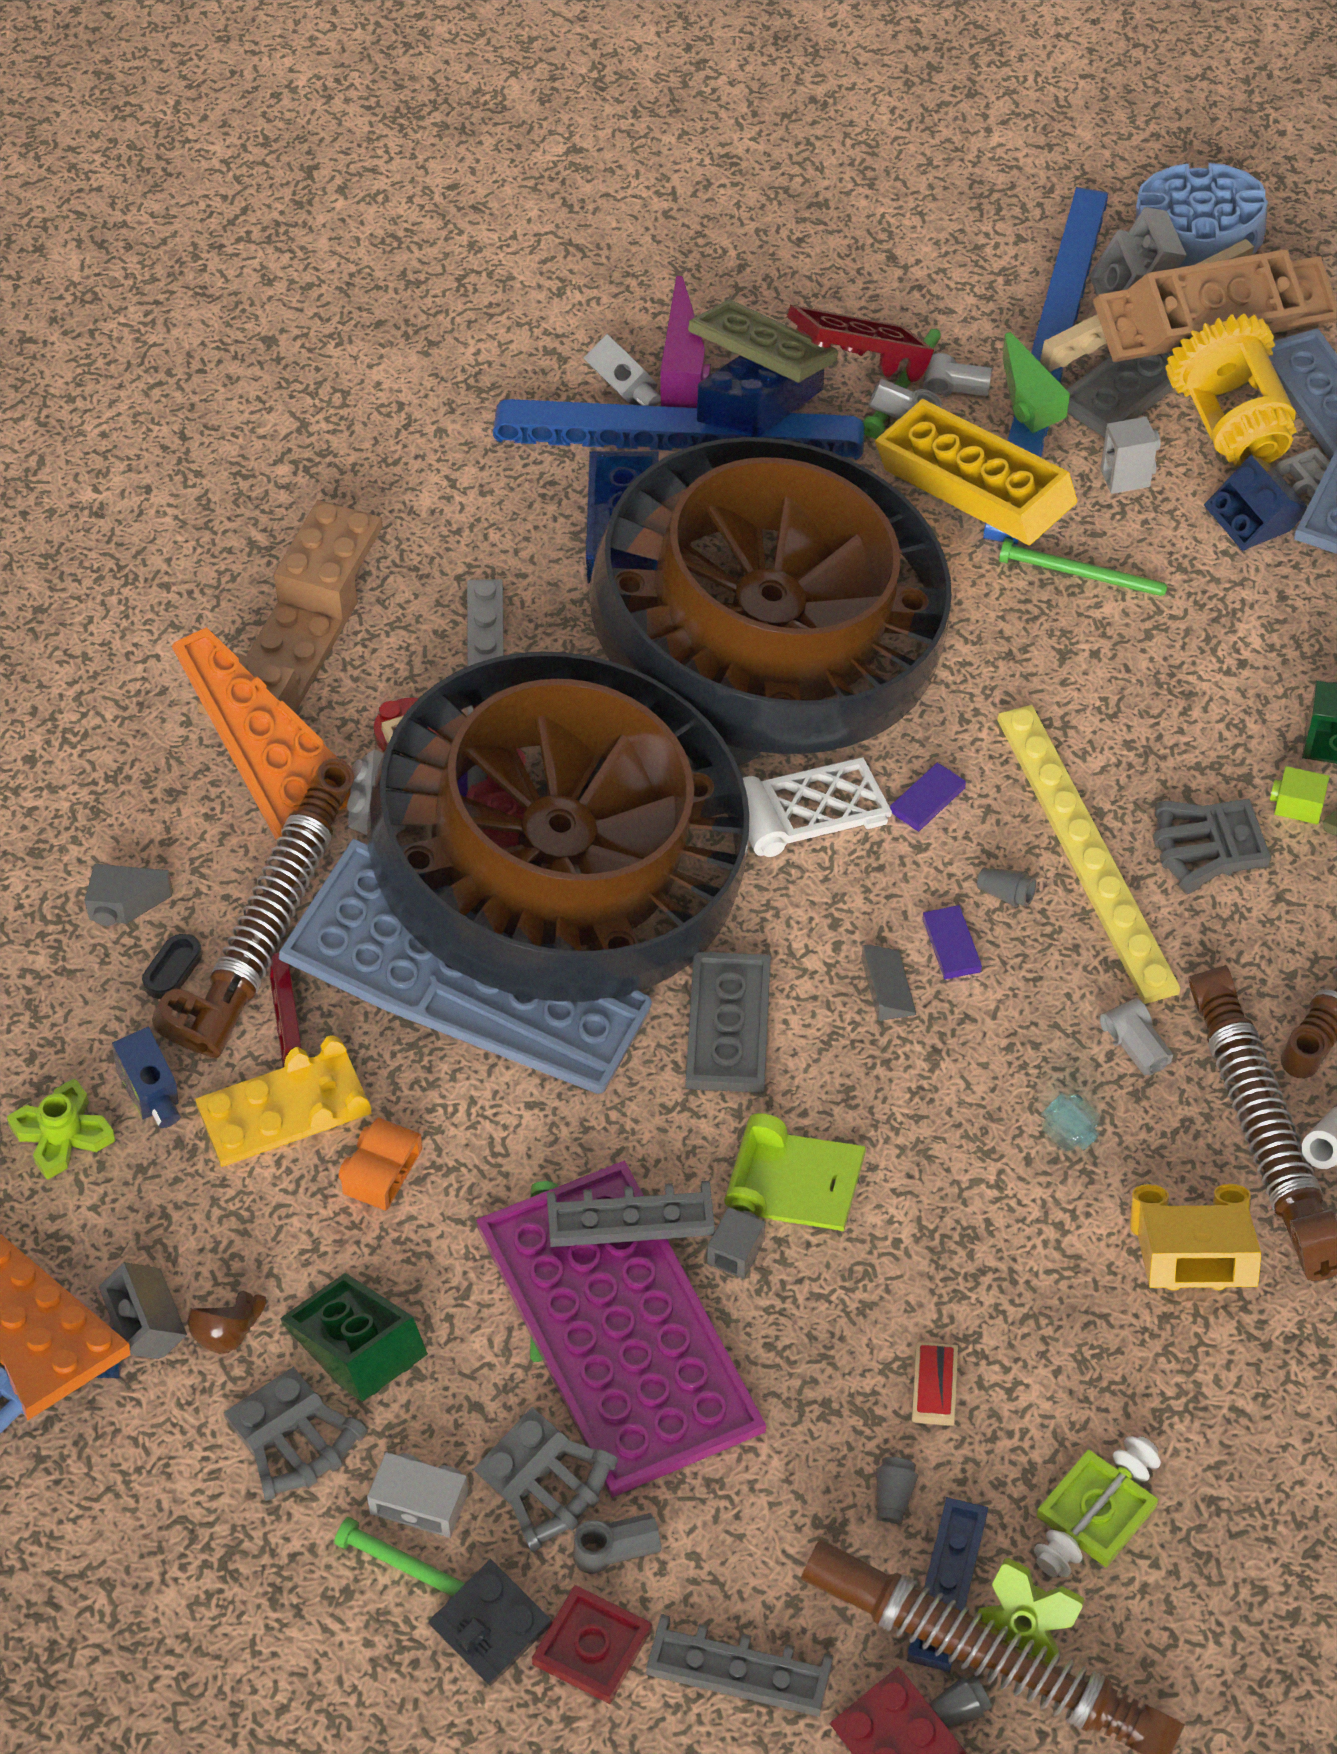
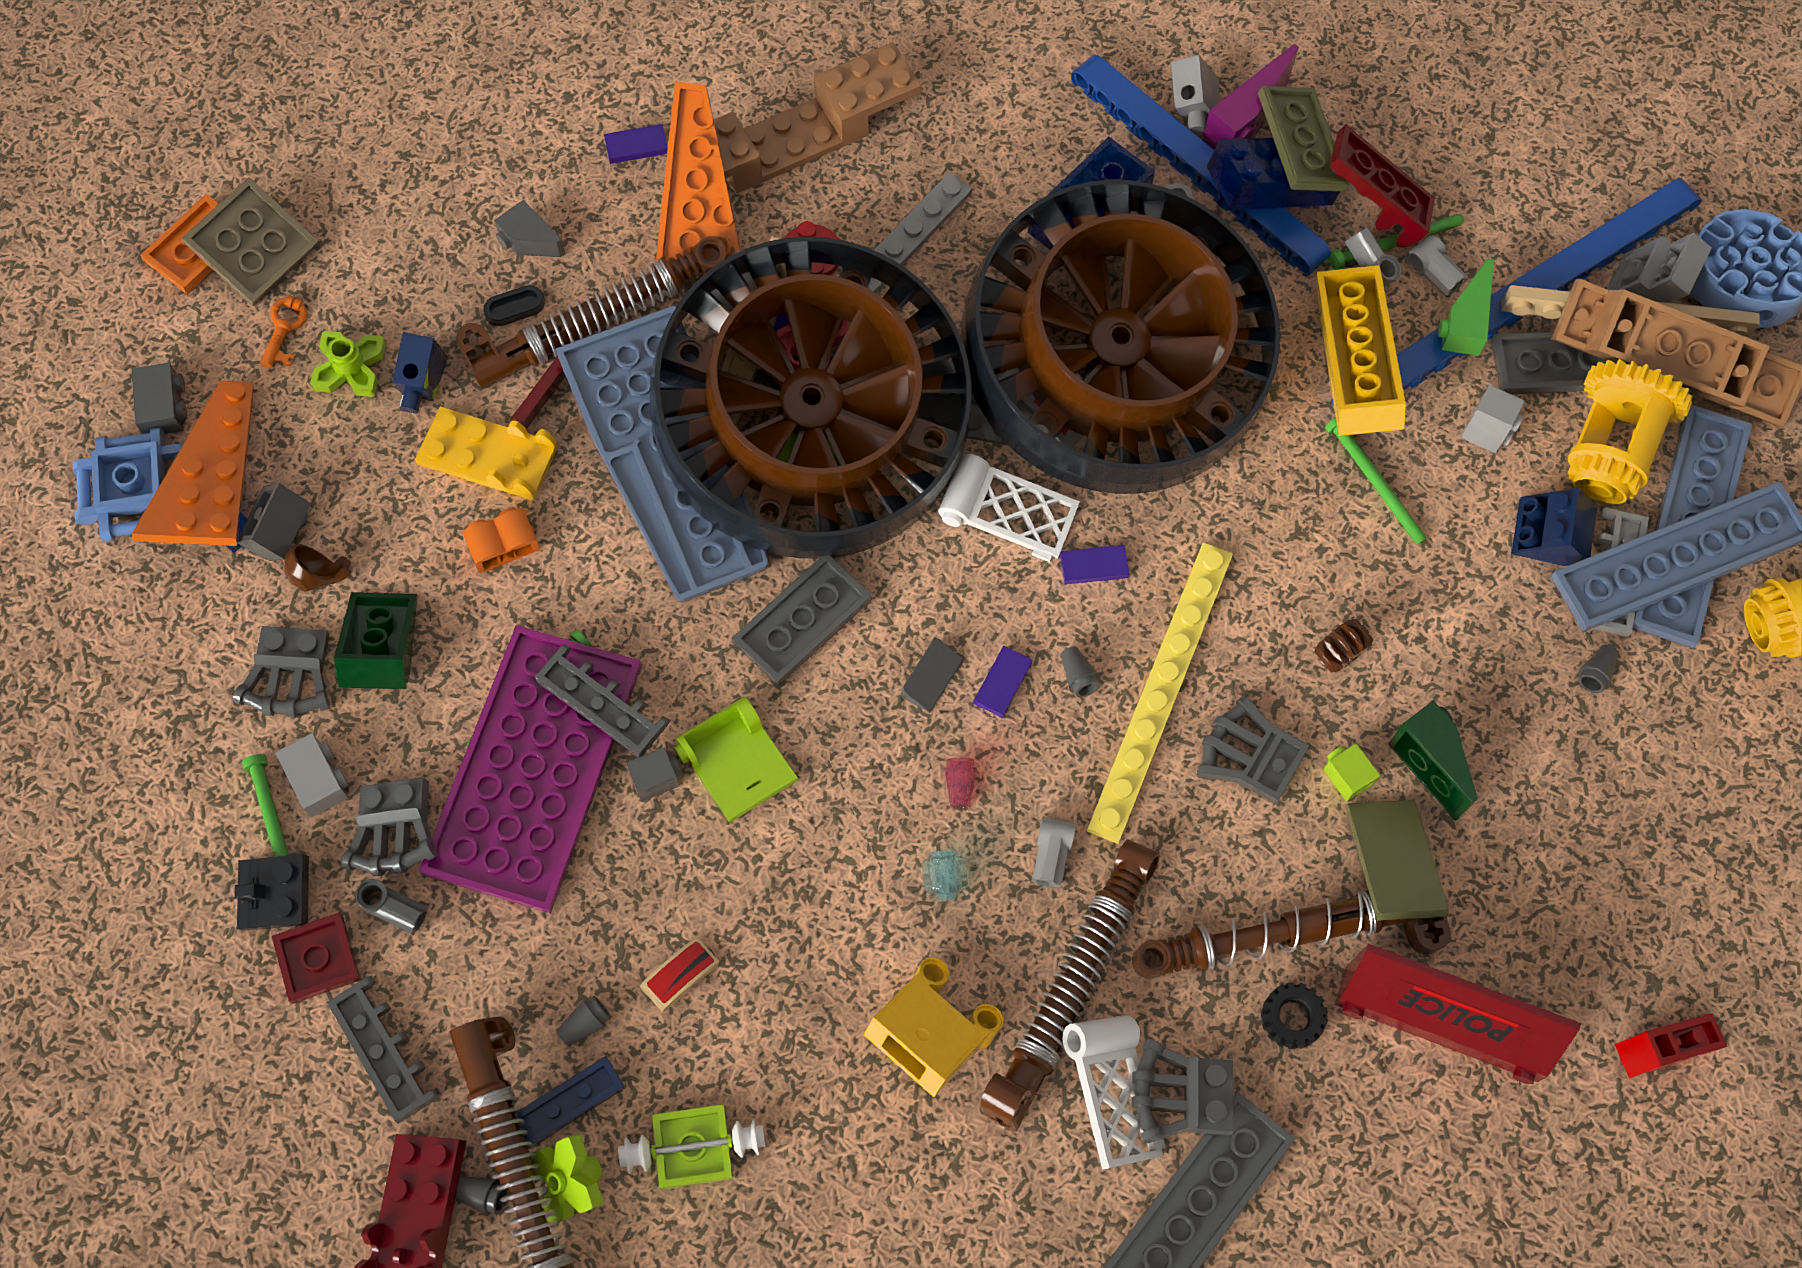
camera: 40 degrees right, 15 degrees up
(143, 752) = (636, 143): none -> dark purple tile
(1002, 1042) = (960, 781): none -> clear pink cone
(1196, 704) = (1343, 645): none -> reddish brown gear

